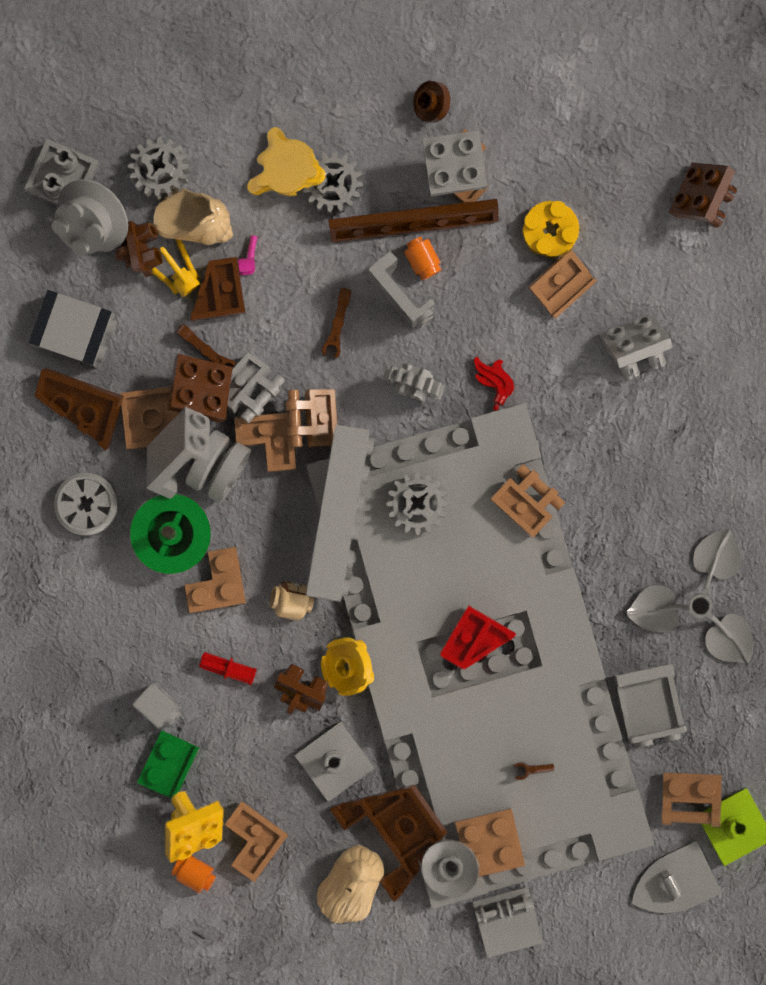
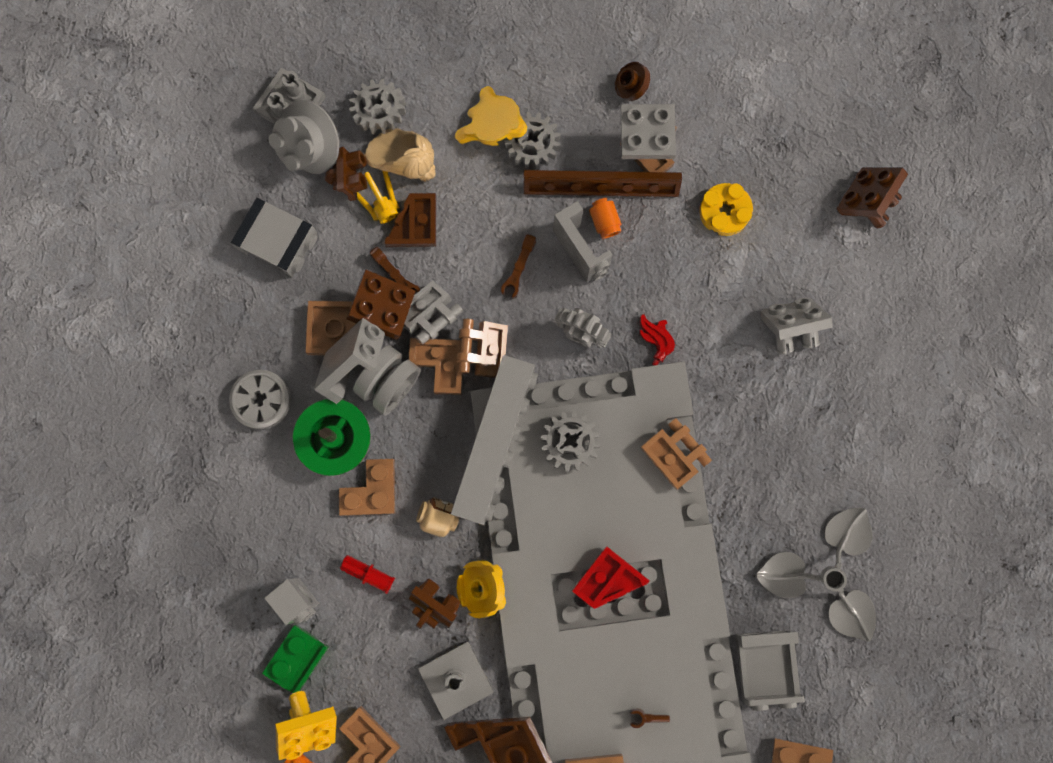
camera: 10 degrees right, 5 degrees down
(82, 403) = (272, 306): reddish brown wing -> none
(247, 265) = (444, 204): dark pink hand -> none
(562, 283) = (731, 258): medium nougat plate -> none

